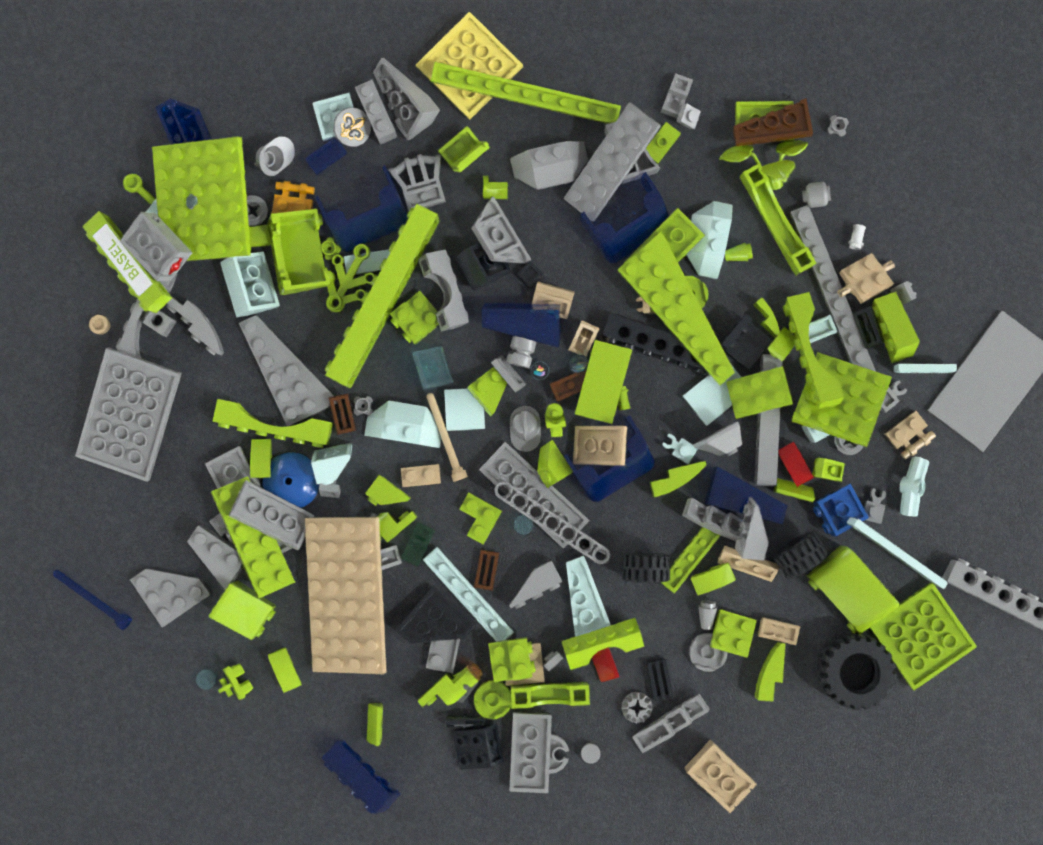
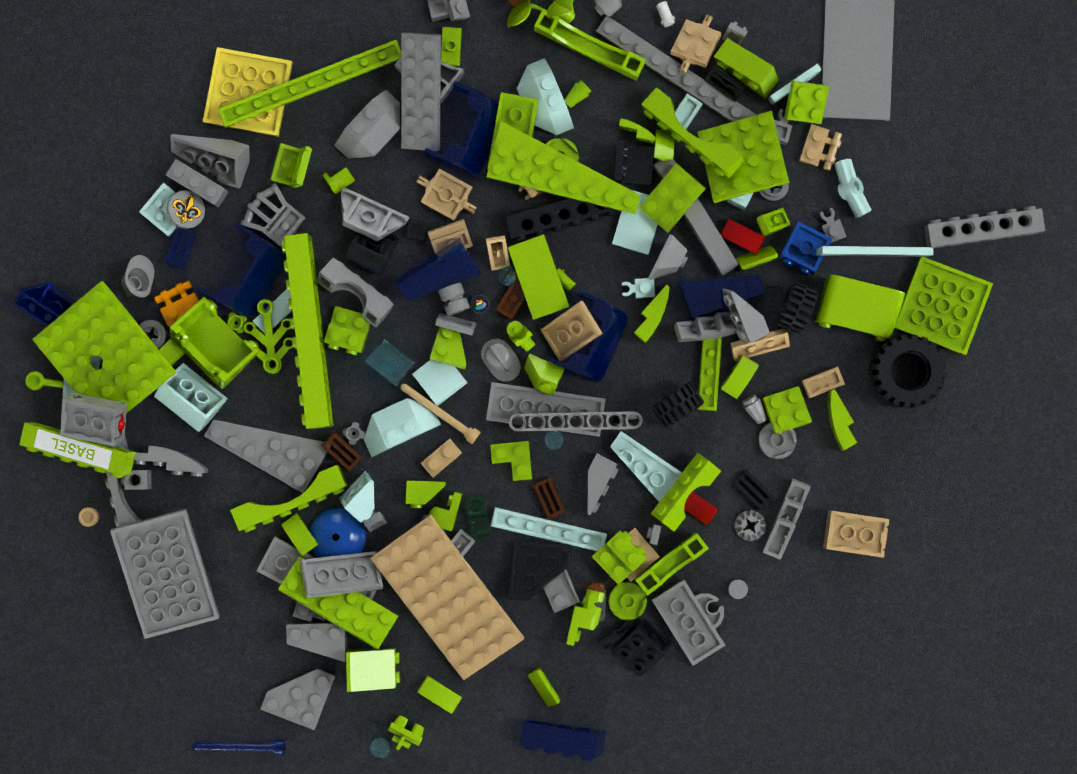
camera: 30 degrees left, 0 degrees up
(574, 262) = (446, 194): none -> tan plate
(925, 389) = (806, 102): none -> lime plate

